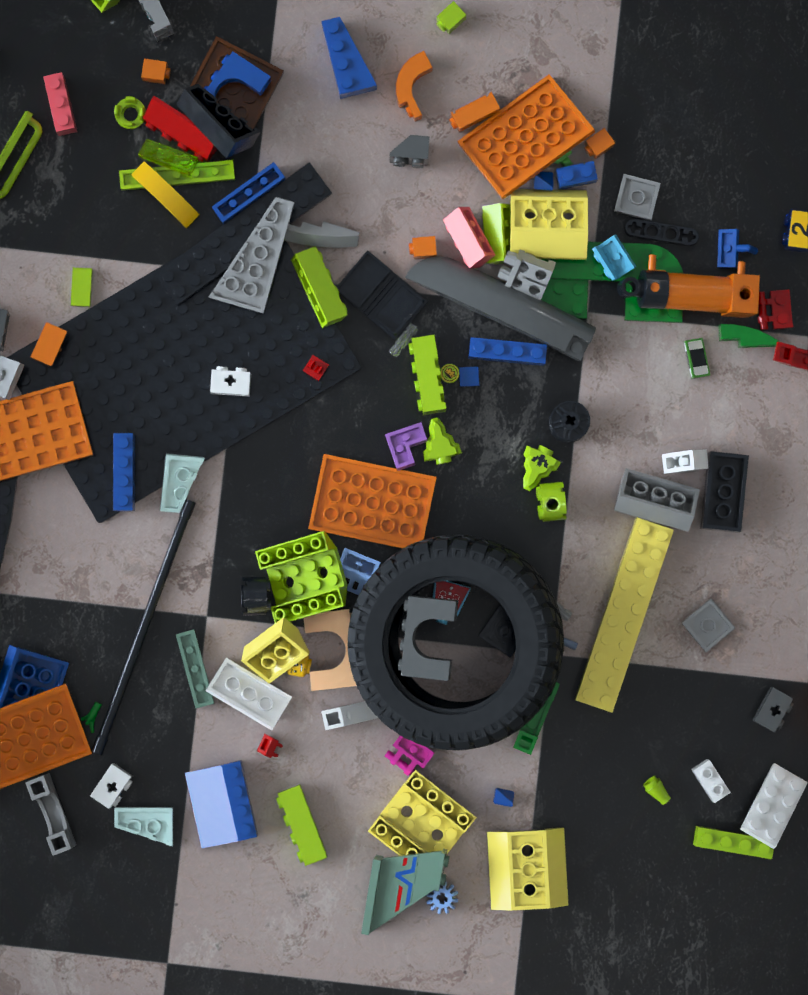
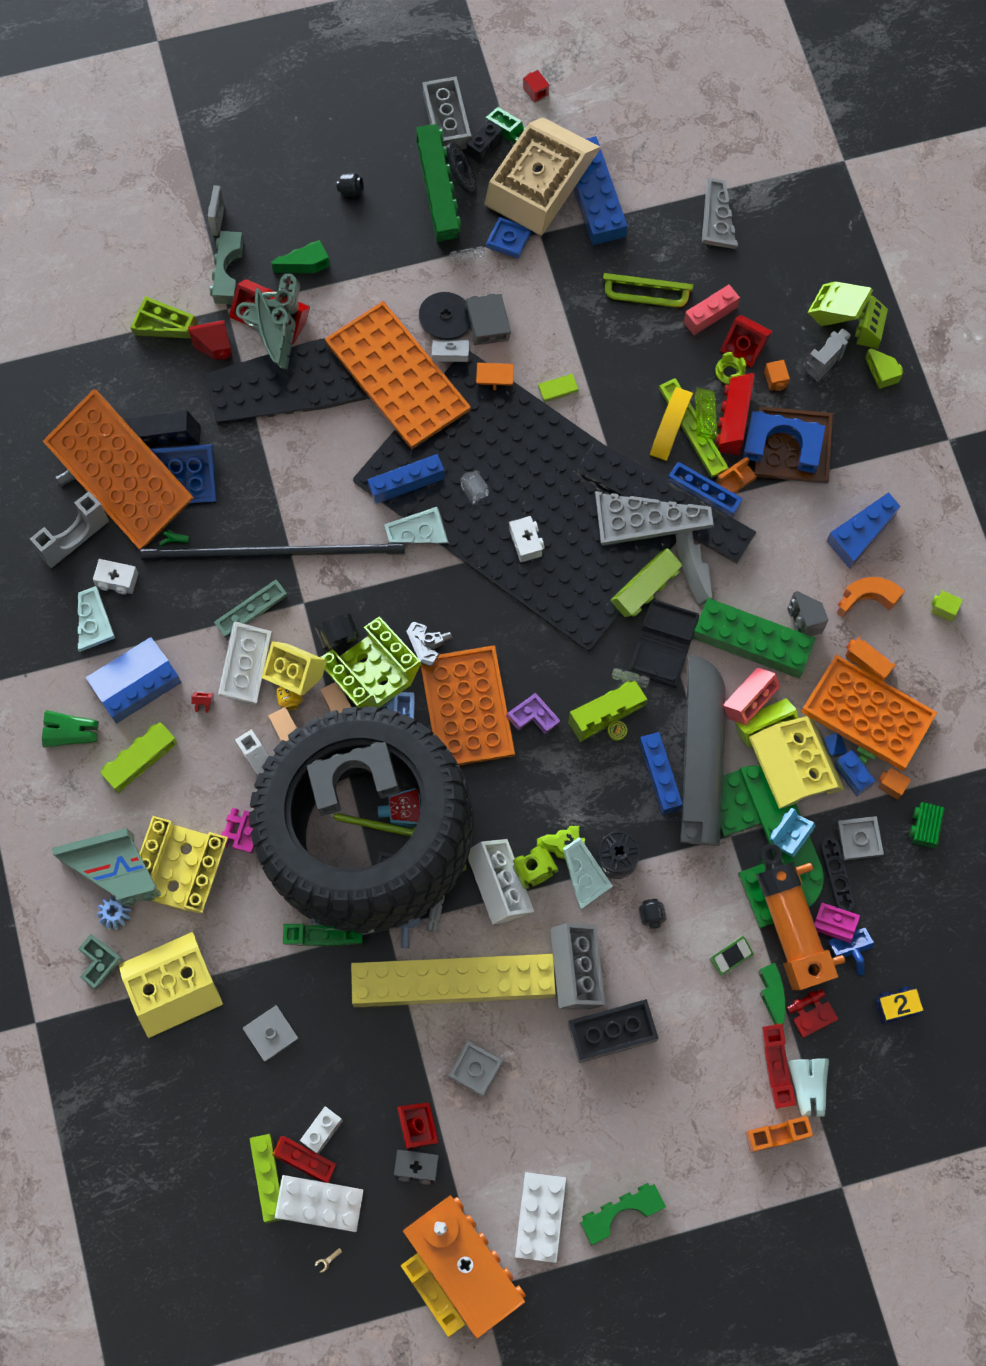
camera: 70 degrees right, 15 degrees down
(106, 84) = (746, 340): none -> red slope
(156, 410) = (474, 486): none -> clear brick
(216, 121) = (755, 431): black wedge -> none
(247, 163) = (737, 476): none -> orange panel
(248, 882) = (67, 729): none -> green piece
(295, 518) = (426, 643): none -> piece
(315, 368) = (571, 608): red tile -> none
(412, 210) = (753, 638): none -> green brick
(423, 247) = (724, 661): orange brick -> none
(440, 444) = (547, 746): lime rock -> none
(469, 376) = (622, 749): blue tile -> none
(475, 595) = (373, 824): none -> lime piece
(482, 921) = (103, 961): none -> sand green brick
(503, 797) = (232, 934): blue slope -> none
(527, 274) = (741, 757): light grey hips -> none
(550, 539) = (498, 882): none -> white slope
(574, 458) = (585, 873): none -> light aqua wing
(606, 794) = (270, 1033): none -> light grey plate
(632, 412) = (652, 913): none -> black head
(649, 132) = (927, 825): none -> green brick
(657, 790) = (293, 1080): lime cone -> none
(685, 461) = (626, 979): white brick -> none
(705, 253) = (836, 922): none -> dark pink plate
(730, 805) = (304, 1159): none -> red plate
(738, 695) = (417, 1125): none -> red slope

